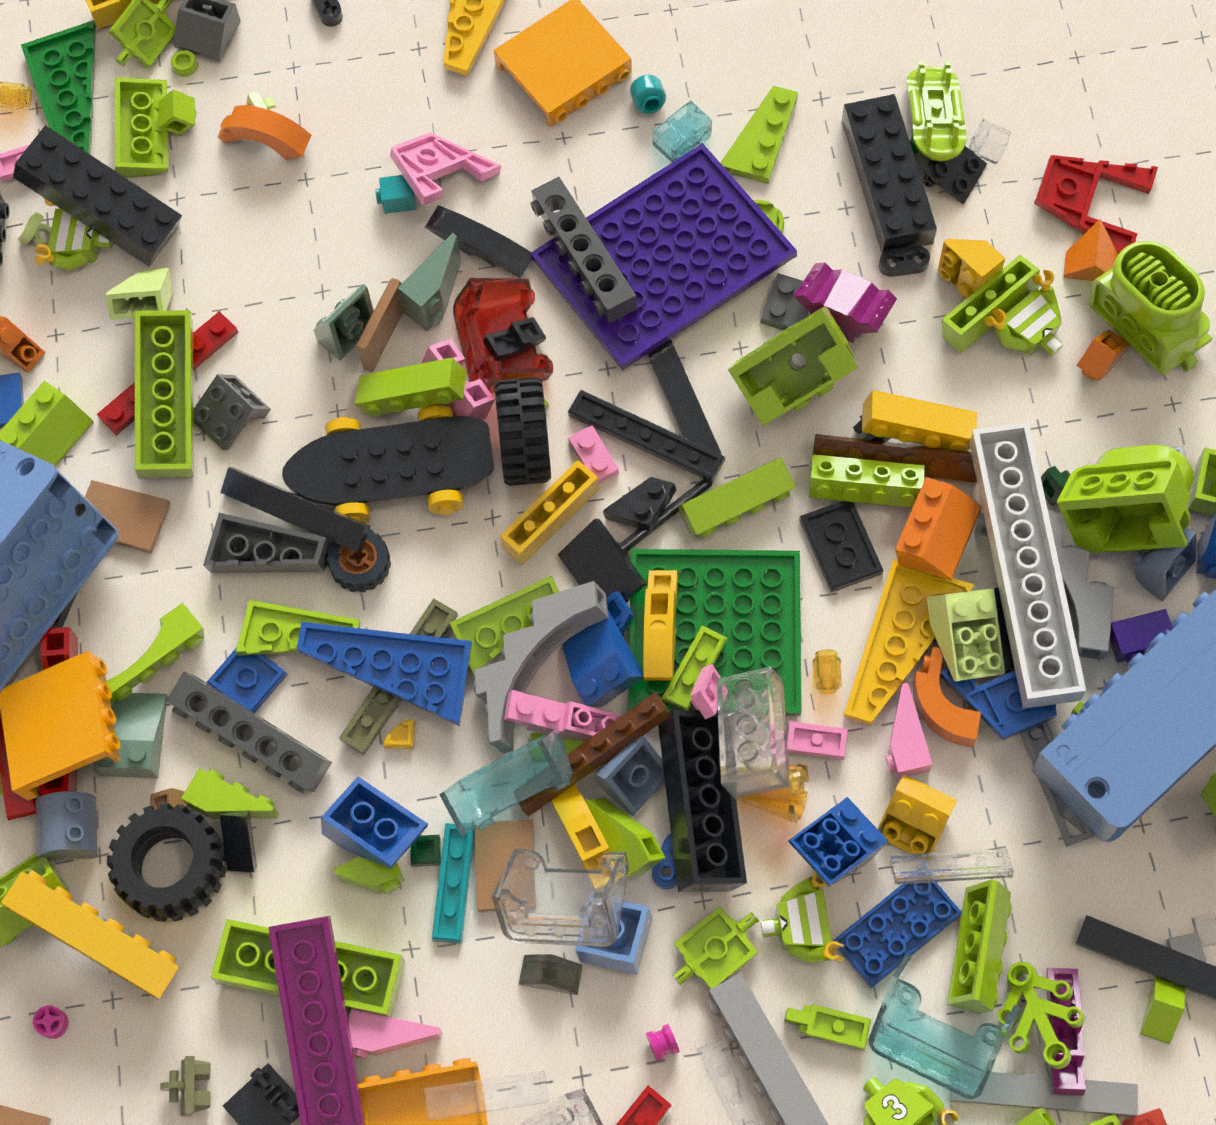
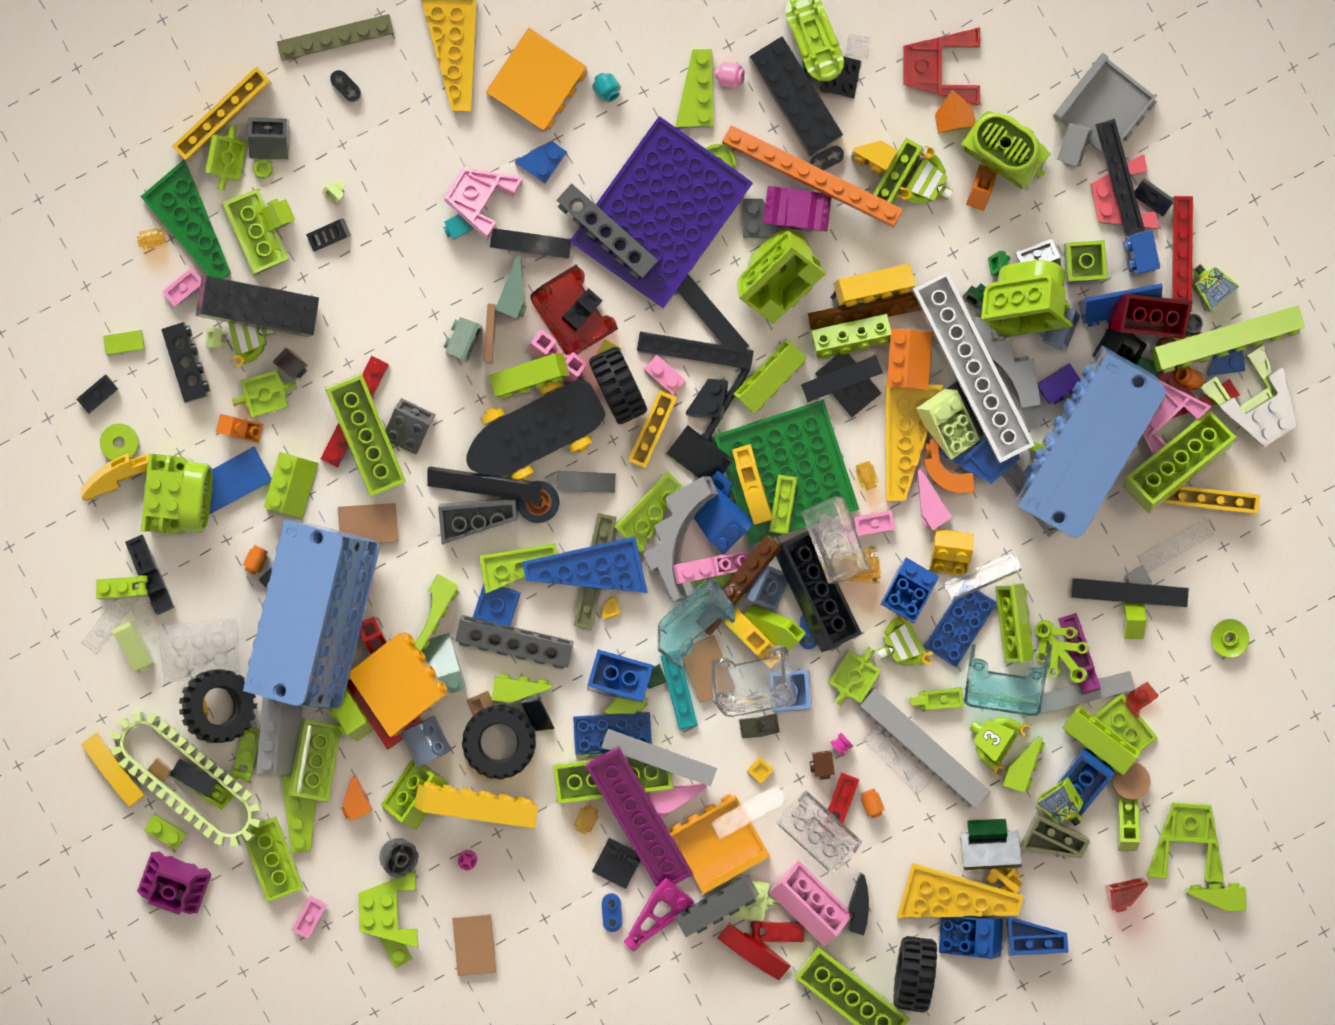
camera: 25 degrees left, 20 degrees up
(63, 313) = (264, 393): none -> lime plate
(102, 266) = (291, 363): none -> black slope
(142, 292) = (319, 368): yellowish green slope -> none
(190, 1072) = (564, 868): olive hips -> none
(245, 1022) = (586, 819): none -> clear yellow brick
(246, 158) = (343, 229): none -> black slope
(267, 128) = (347, 210): orange arch -> none
(356, 913) = (591, 730): none -> blue tile
(387, 960) = (660, 757): none -> light grey tile
(432, 553) = (586, 481): none -> dark grey slope
(528, 1040) = (760, 770): none -> yellow tile
(534, 155) = (542, 160): none -> blue wing
(623, 1062) = (822, 764): none -> reddish brown brick
(682, 131) = (641, 110): clear light blue brick -> none
(705, 692) = (797, 524): bright pink plate -> none
(811, 126) = (730, 75): none -> bright pink head
(834, 527) = (841, 378): none -> black slope
(881, 268) = (812, 176): none -> orange plate
(1097, 448) = (997, 261): none -> green tile

